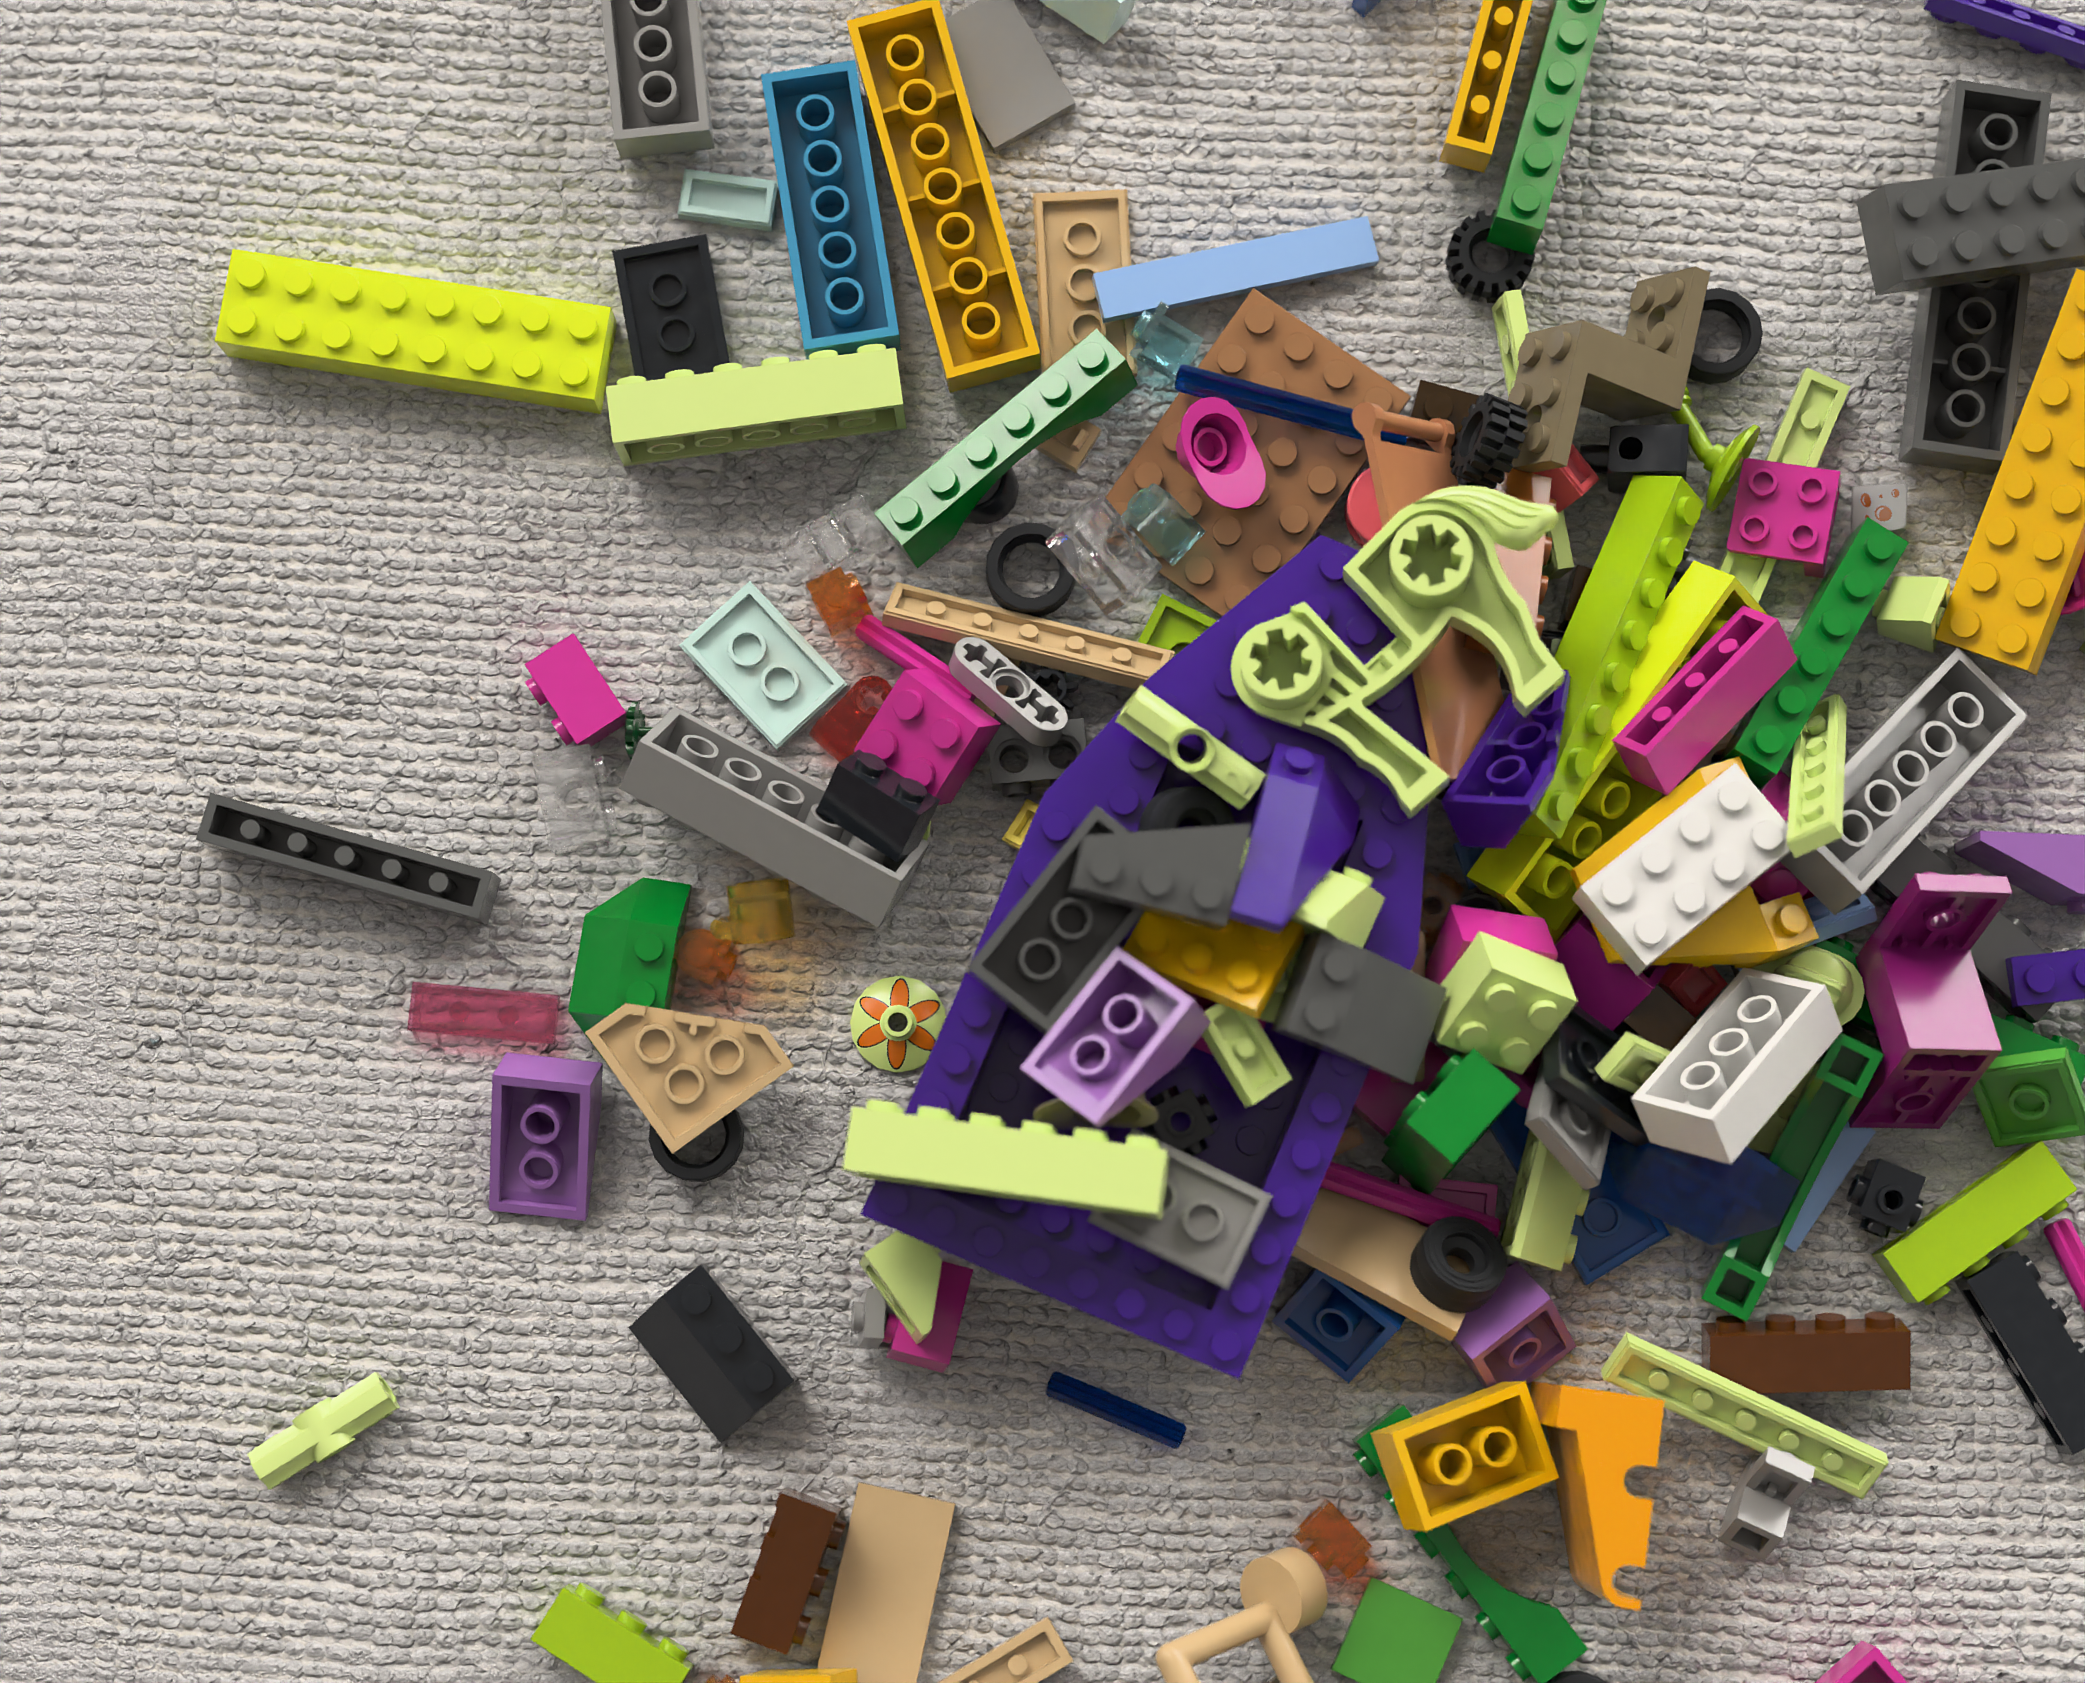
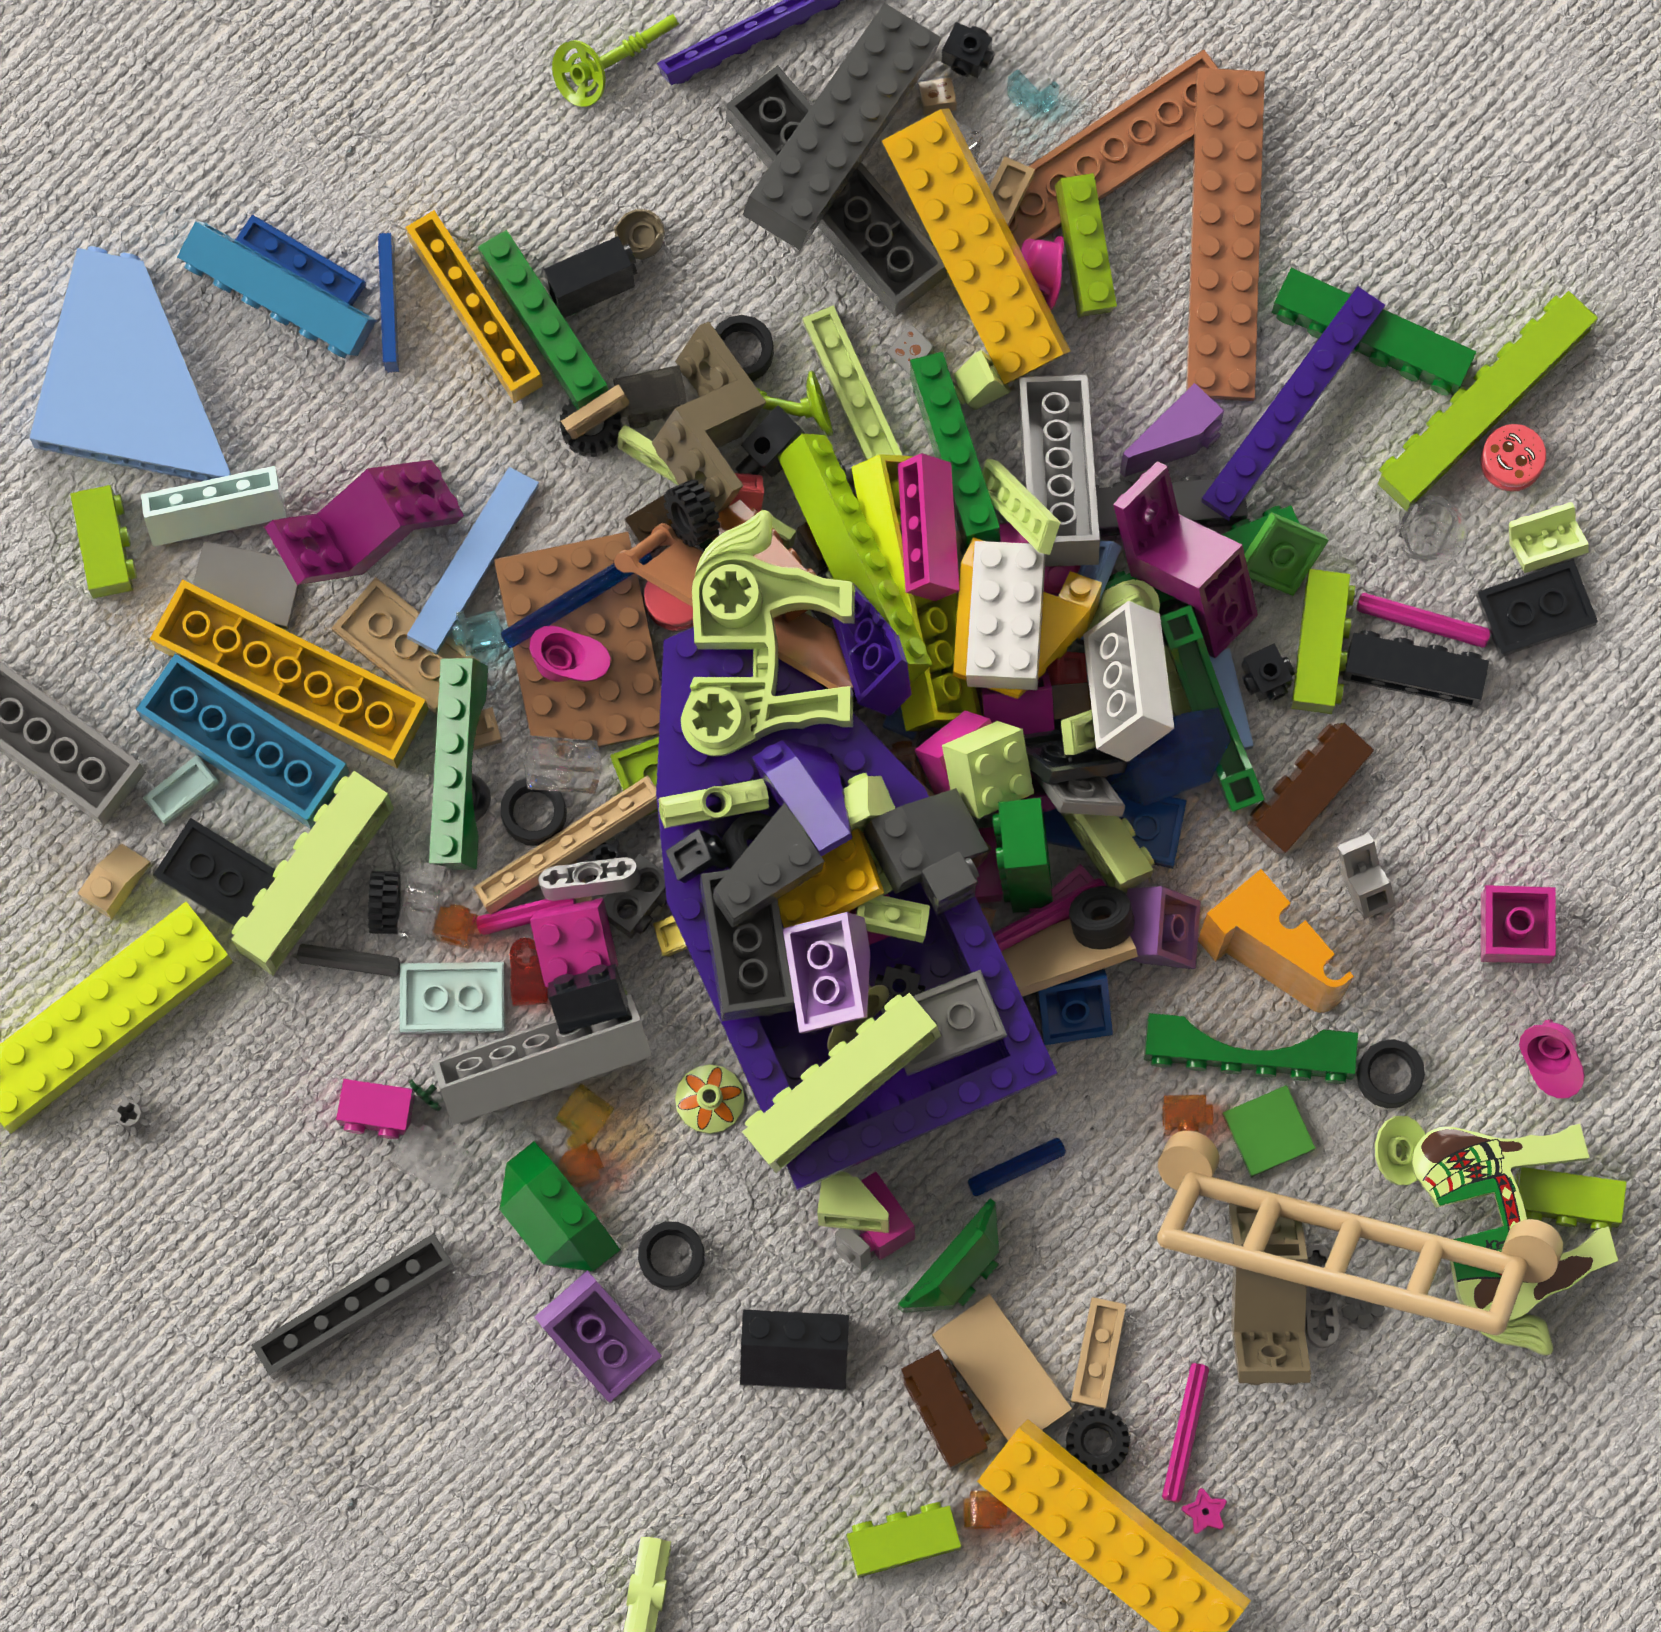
camera: 45 degrees left, 5 degrees down
(334, 451) = (128, 1106): none -> light grey gear
(483, 1013) = (501, 1312): clear pink tile -> none
(572, 217) = (113, 880): none -> tan slope
(686, 1065) = (632, 1223): tan plate -> none
(706, 526) = (348, 960): none -> dark grey axle
(794, 504) = (384, 902): none -> black tyre
(954, 1446) = (958, 1267): none -> green wedge
(1118, 780) = (696, 855): none -> black bracket
(1162, 523) = (574, 719): clear light blue bracket -> none
(1168, 121) = (364, 522): none -> magenta bracket
(1335, 1078) = (949, 882): none -> dark grey brick
(1464, 1455) = (1201, 1002): yellow brick -> none
(1504, 247) = (595, 412): none -> tan tile
(1574, 286) = (651, 396): none -> clear smoke brick
(1644, 113) = (591, 276): none -> black brick
(1736, 122) = (642, 232): none -> dark tan hair
(1743, 1414) = (1313, 843): yellowish green tile -> none
(1785, 513) = (868, 399): dark pink bracket -> none

